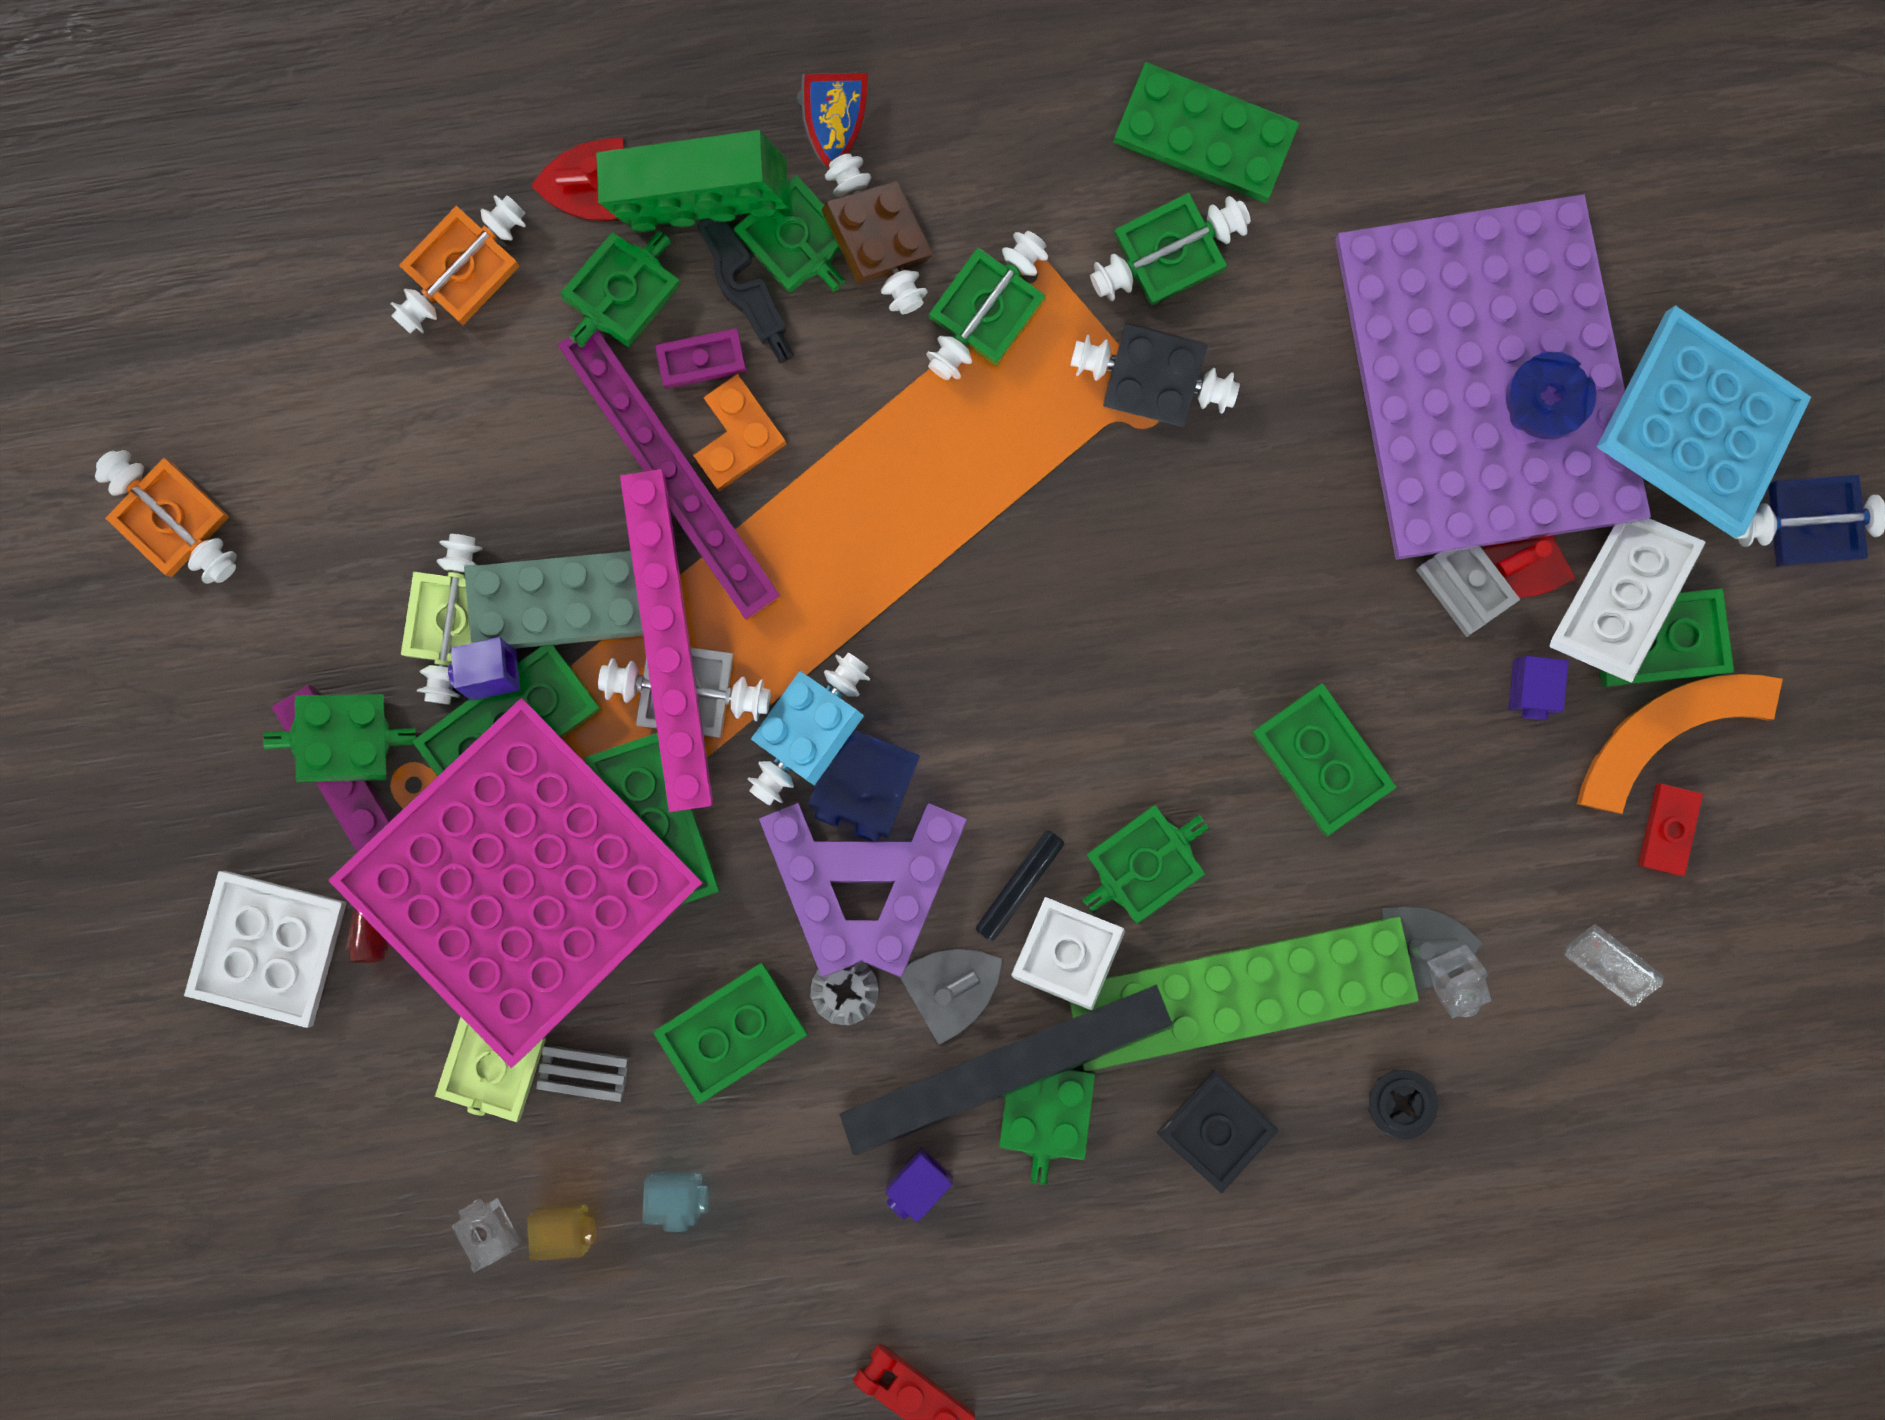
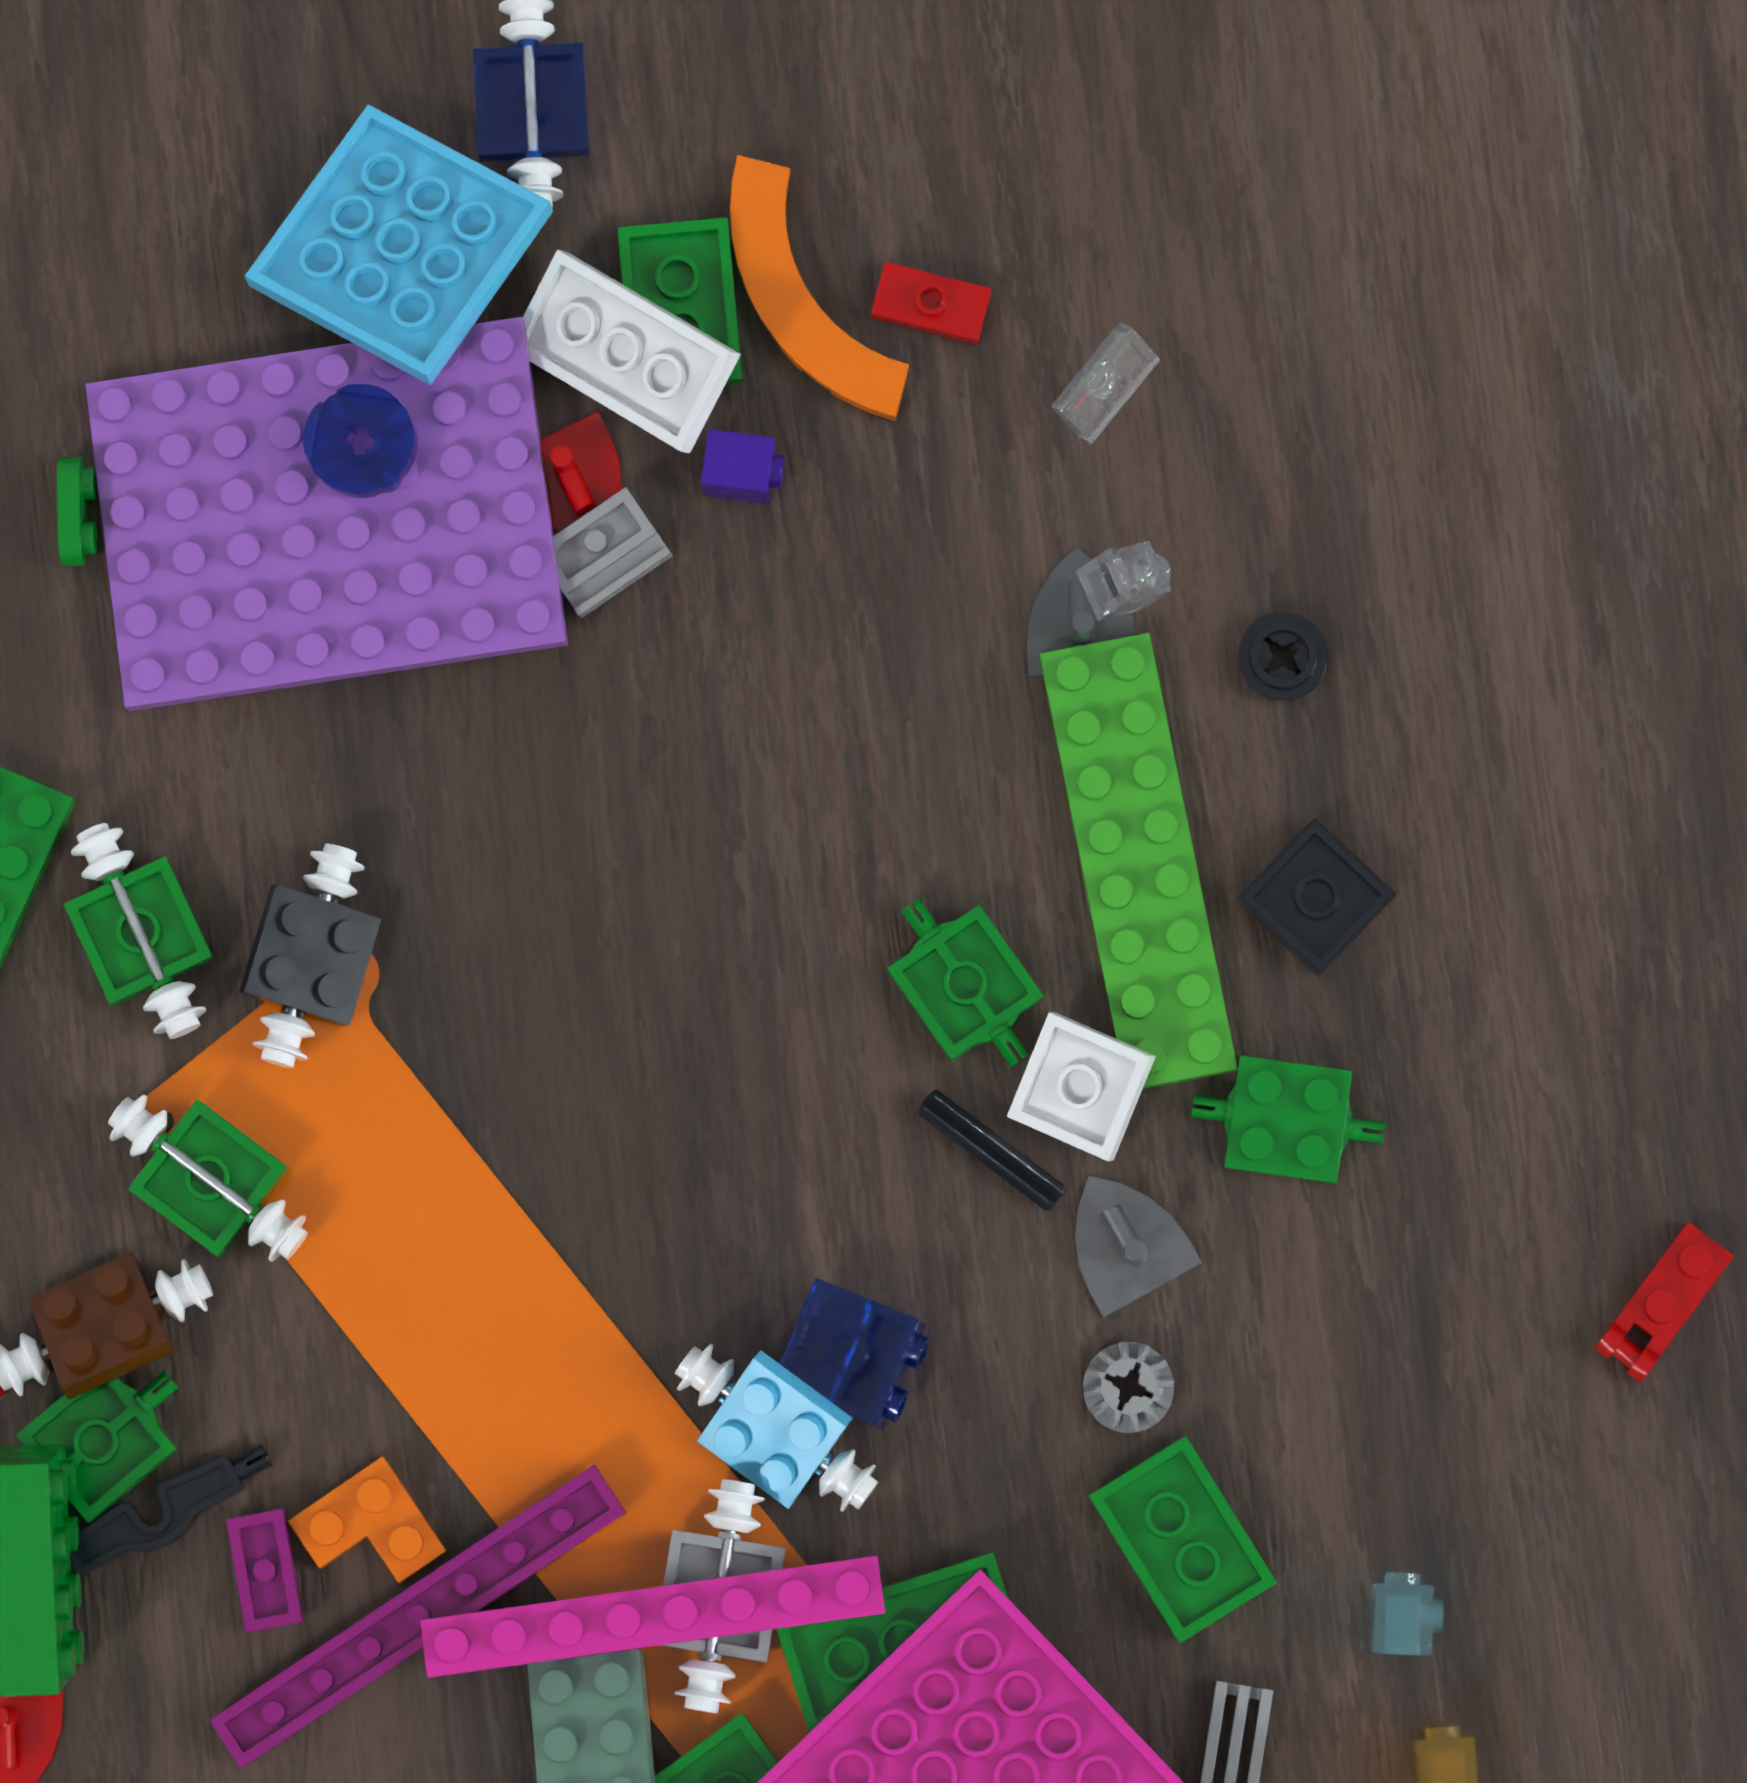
camera: 90 degrees left, 5 degrees down
(620, 289) = (165, 1680): green plate -> none
(912, 867) = (961, 1426): medium lavender plate -> none
(917, 1186) = (1386, 1291): dark purple brick -> none
(1006, 1070) = (1234, 1172): black tile -> none
(1323, 759) = (831, 746): green plate -> none
(1498, 188) = (74, 489): none -> green plate

